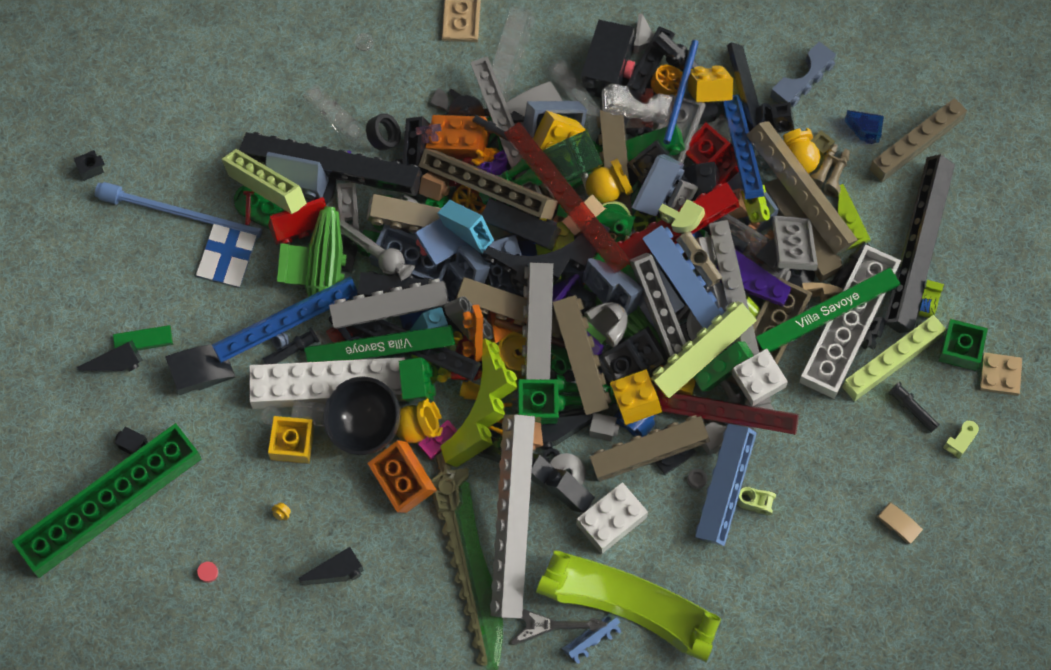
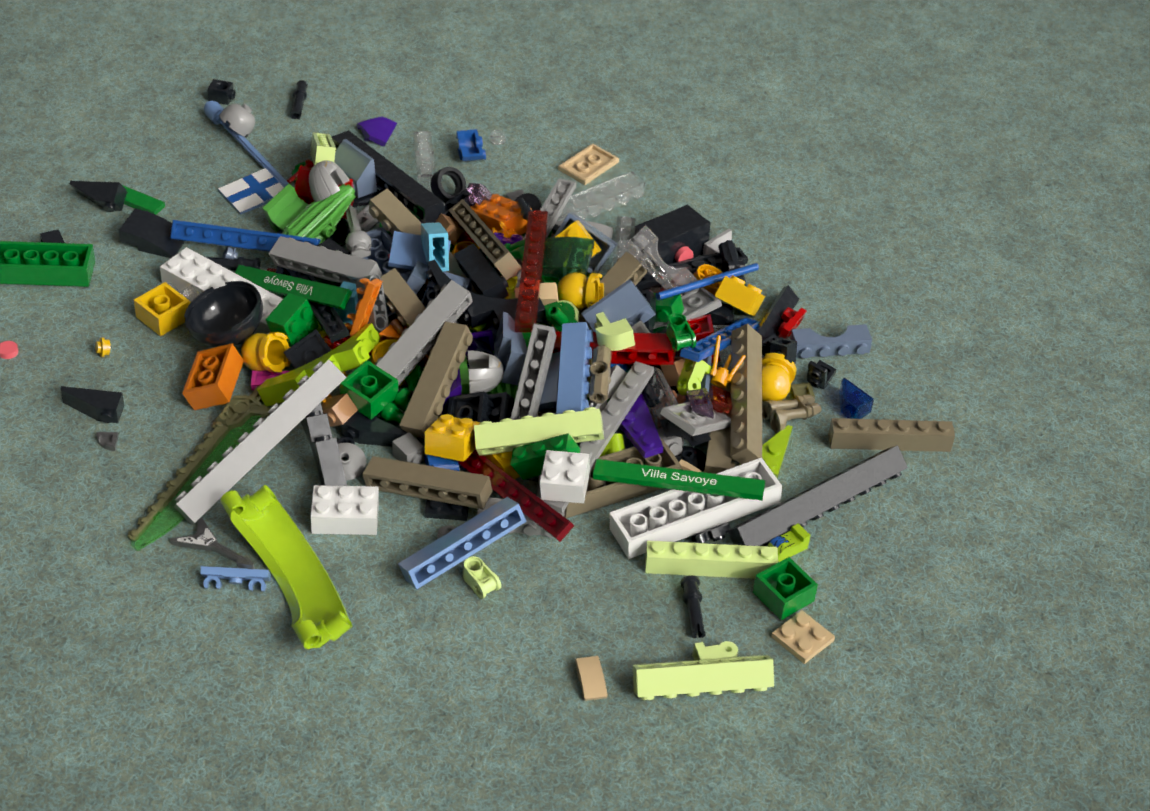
camera: 35 degrees right, 25 degrees down
(144, 189) = (239, 118): none -> light grey cylinder
(157, 117) = (299, 96): none -> black pin
(260, 108) = (377, 129): none -> dark purple slope
(311, 224) = (325, 178): none -> light grey hair
(355, 72) = (470, 145): none -> blue cylinder
(374, 593) = (108, 439): none -> flat silver tile
(456, 399) = (307, 350): none -> black tile
(738, 183) = (680, 332): none -> green piece
(761, 74) = (793, 320): none -> red hinge
(773, 186) = (721, 375): none -> light orange plant
(785, 226) = (700, 402): none -> slope
(790, 208) = (720, 399): none -> clear red plate
(824, 116) = (820, 374): none -> black bracket
(972, 464) = (703, 676): none -> yellowish green brick

